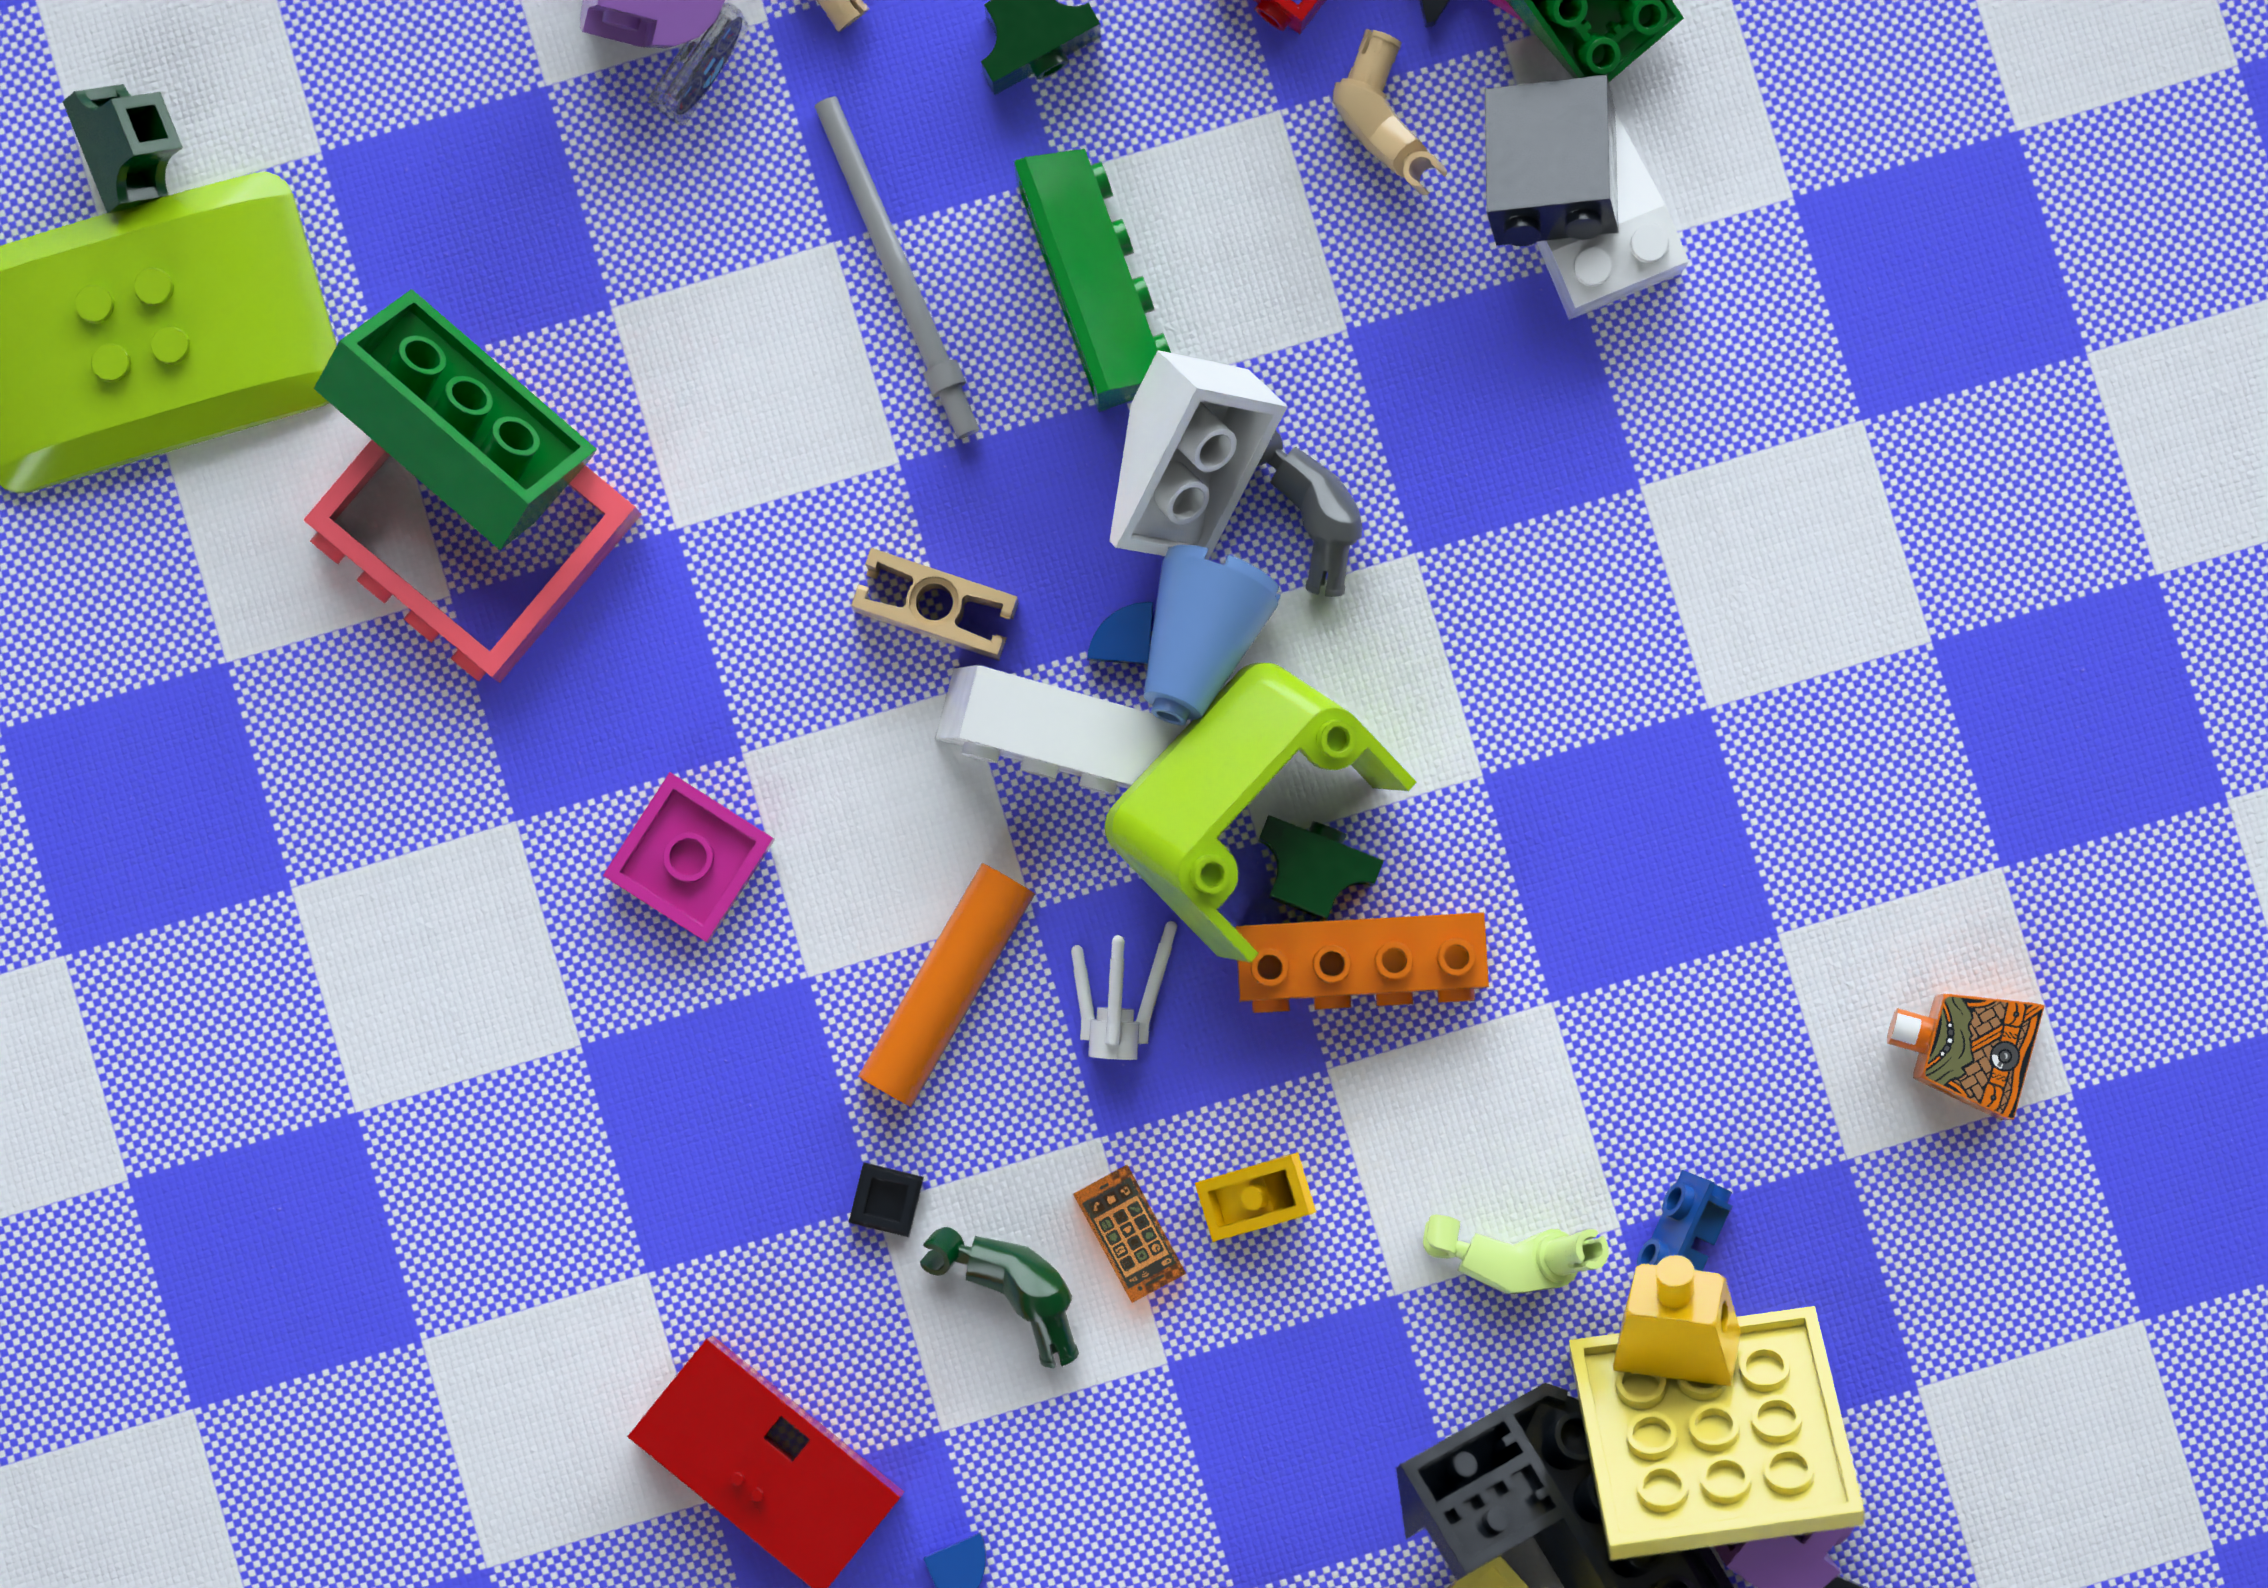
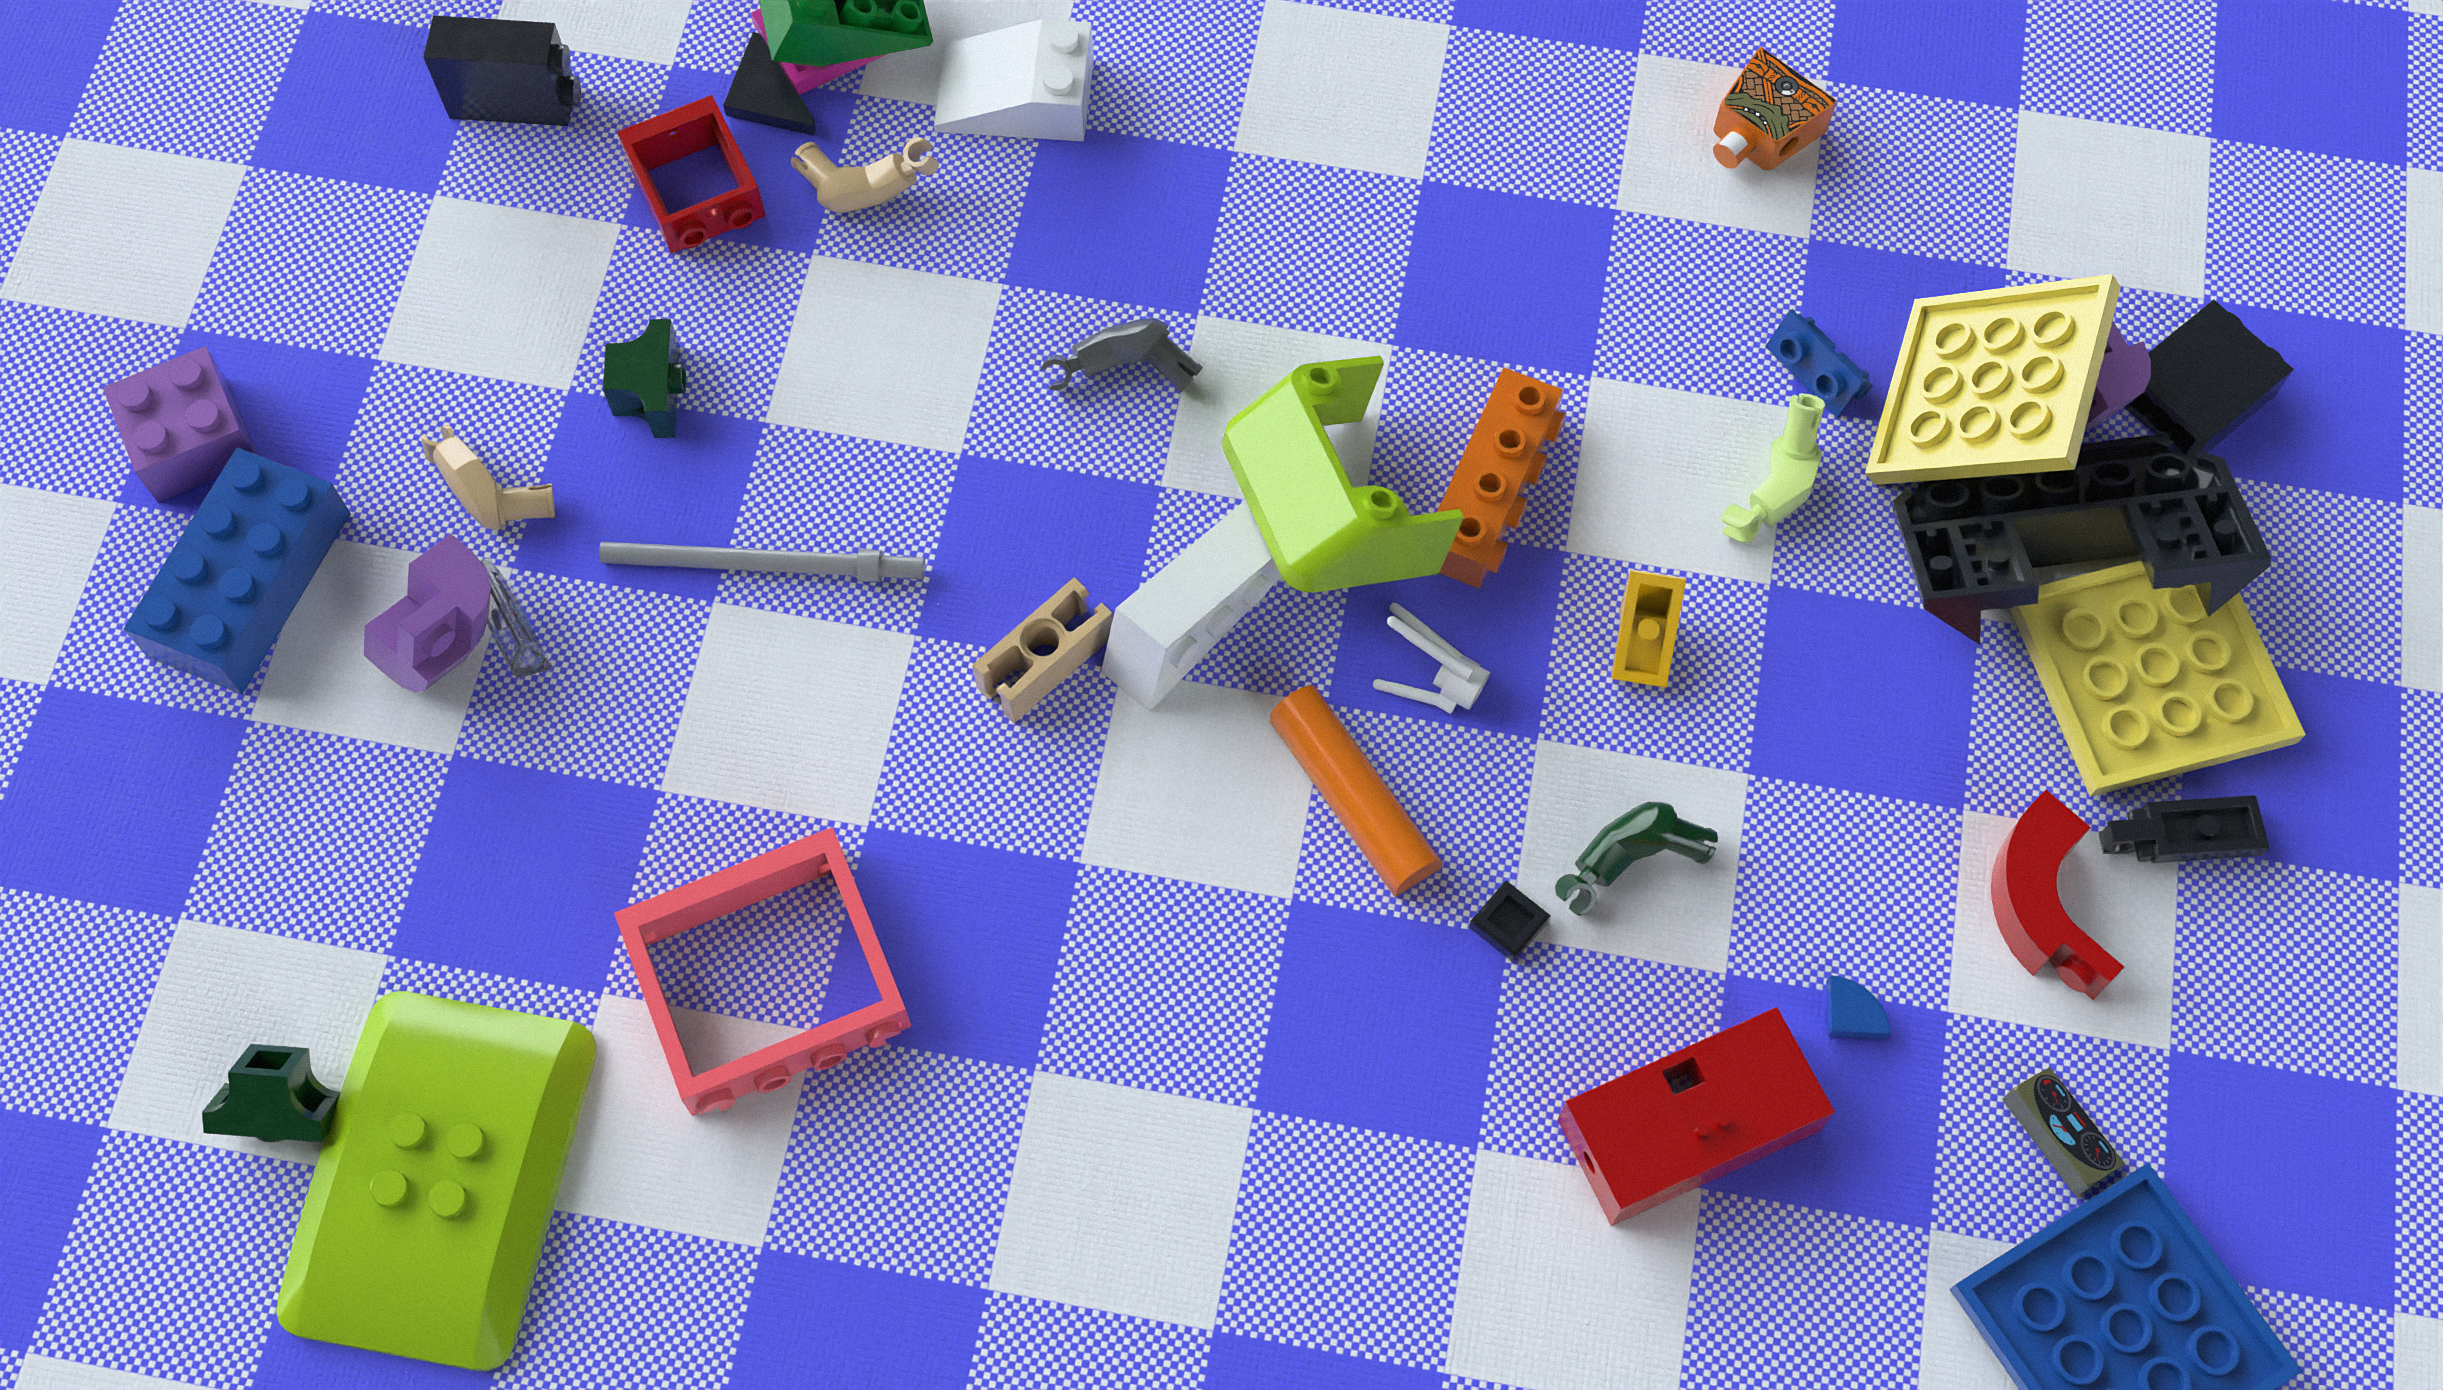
camera: 65 degrees left, 20 degrees down
(453, 418) = (672, 926): green slope -> none
(688, 857) = (1143, 936): dark pink plate -> none
(1090, 272) = (856, 422): green slope -> none
(1124, 636) = (1148, 533): blue tile -> none
(1129, 1233) = (1628, 749): clear orange tile -> none
(1189, 452) = (1035, 400): white slope -> none
(1202, 629) = (1172, 452): medium blue cone -> none
(1314, 865) = (1409, 469): dark green brick -> none
(1551, 161) = (964, 75): brick -> none
(1678, 1324) = (1892, 374): yellow torso -> none

